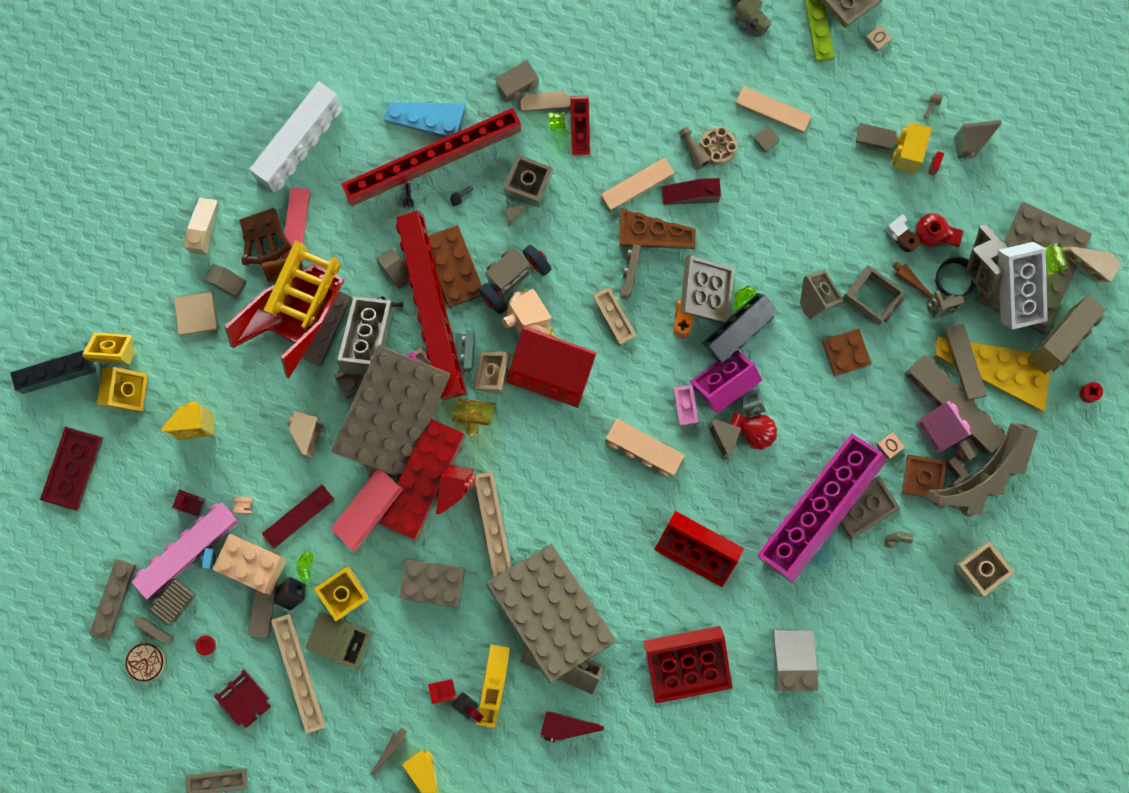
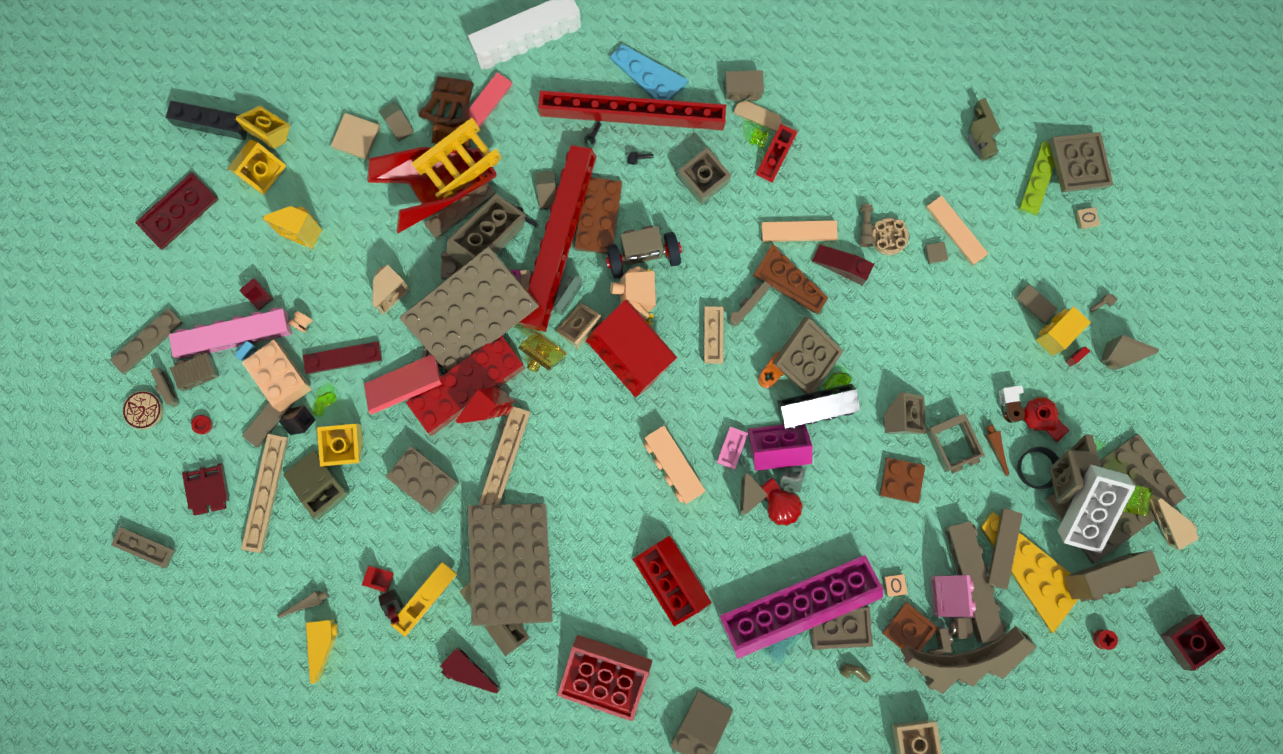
camera: 25 degrees right, 0 degrees up
(201, 227) = (401, 64): tan slope -> none
(514, 213) = (676, 198): dark tan slope -> none
(941, 308) = (1009, 488): dark tan bracket -> none

